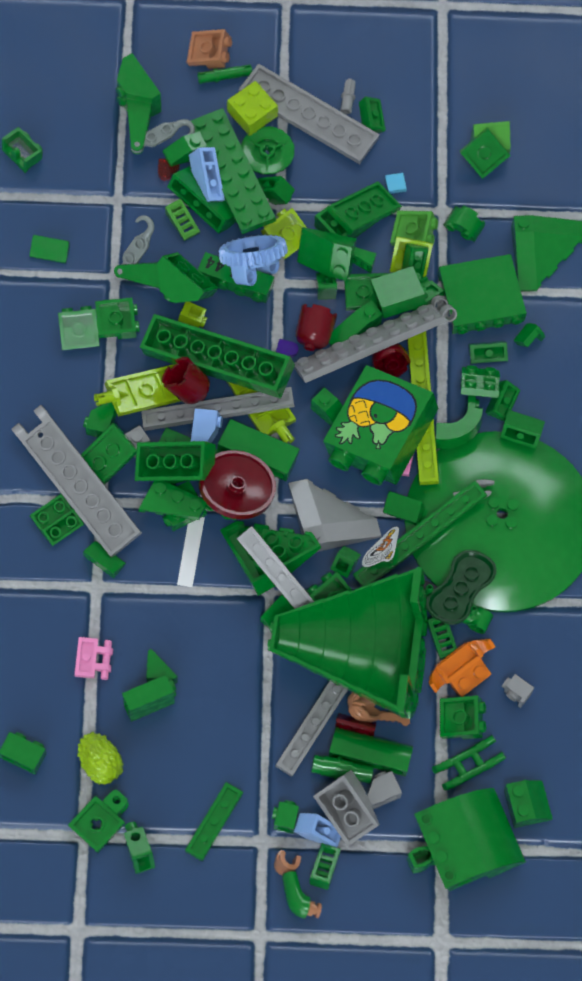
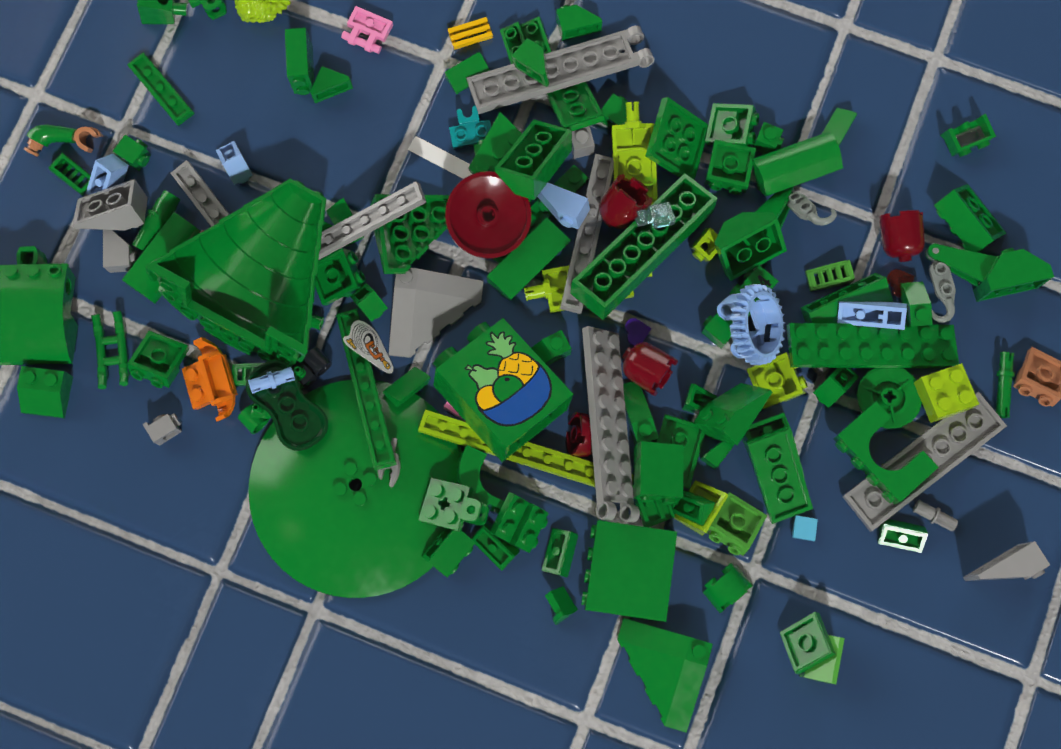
camera: 115 degrees right, 10 degrees up
(24, 483) = (576, 22): none -> green slope
(54, 558) = (470, 29): none -> yellow tile
(80, 296) = (768, 138): none -> green brick
(81, 497) = (532, 61): none -> green slope
(95, 130) = (969, 219): none -> green slope
(97, 266) = (797, 163): none -> green brick
(111, 362) = (677, 139): none -> green plate
(129, 173) = (902, 234): none -> dark red cylinder
(156, 538) = (469, 129): none -> teal plate
(190, 348) = (658, 214): none -> clear light blue plate
(261, 724) = (234, 163): none -> light blue slope
(315, 161) = (893, 483): none -> green arch
(368, 35) = (1019, 562): none -> light grey slope
(447, 601) = (271, 380): none -> light blue pin
(488, 423) = (461, 507): none -> green plate

